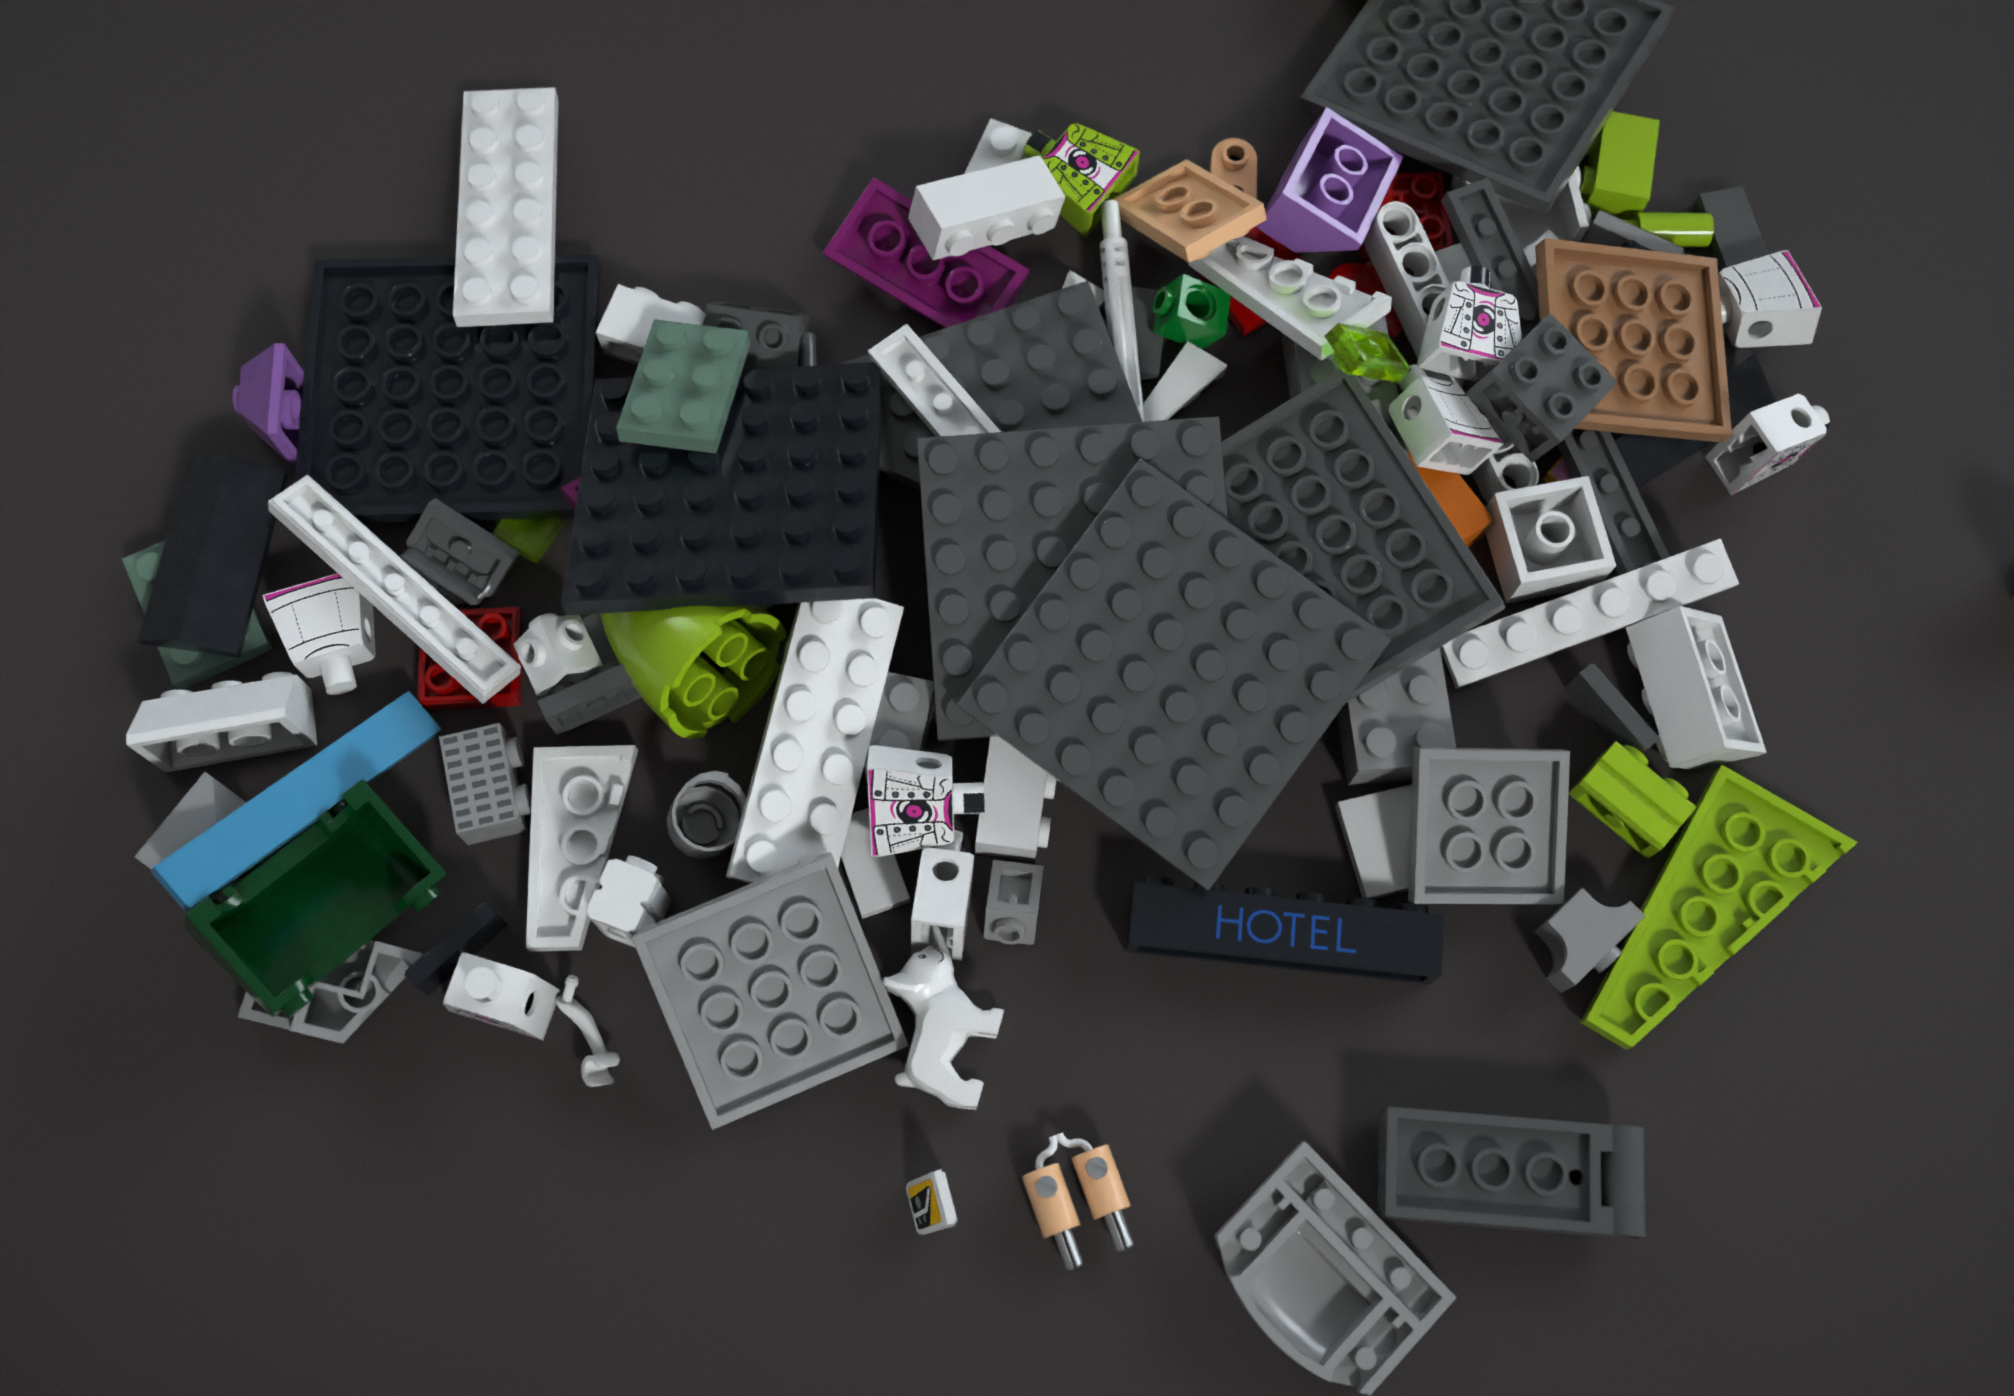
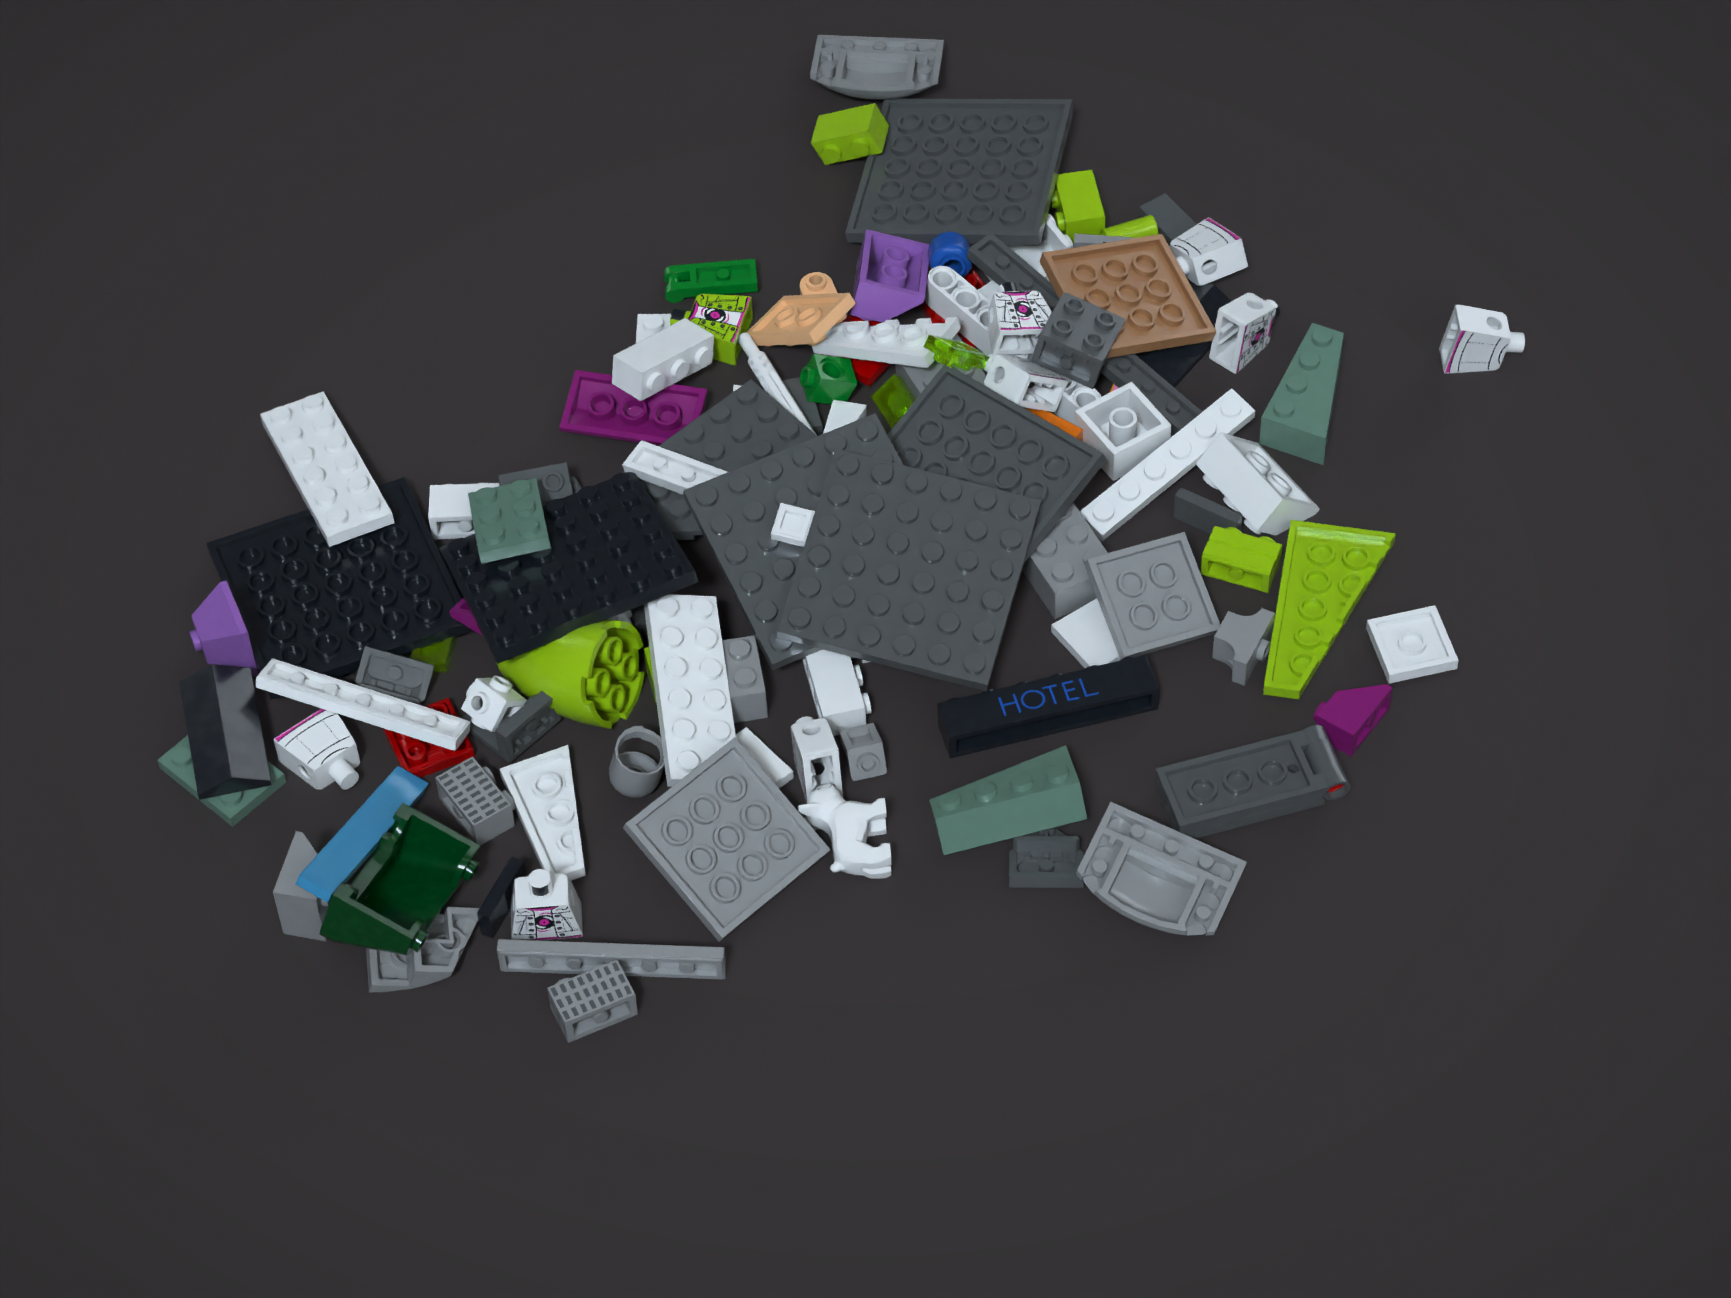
camera: 15 degrees left, 20 degrees down
(225, 722) = (268, 830): white slope -> none
(503, 1160) = (592, 1000): none -> light grey brick
(555, 1106) = (634, 959): none -> light grey tile
(594, 1067) = (625, 926): white piece -> none
(628, 899) = (606, 818): white brick -> none
(915, 799) = (773, 700): white torso -> none
(931, 1203) = (887, 928): slope -> none
(1039, 549) = (792, 524): none -> white tile
(1055, 1207) = (971, 907): light nougat piece -> none
(1103, 100) = (710, 278): none -> green plate
(1173, 1080) = (1010, 803): none -> sand green wedge
(1189, 1172) = (1045, 860): none -> dark grey slope
(1266, 378) = (893, 399): none -> clear neon green plate
(1421, 183) = (950, 250): none -> blue head
(1687, 1116) = (1353, 715): none -> magenta slope
(1811, 587) = (1304, 400): none -> sand green wedge
(1814, 1027) = (1412, 644): none -> white plate

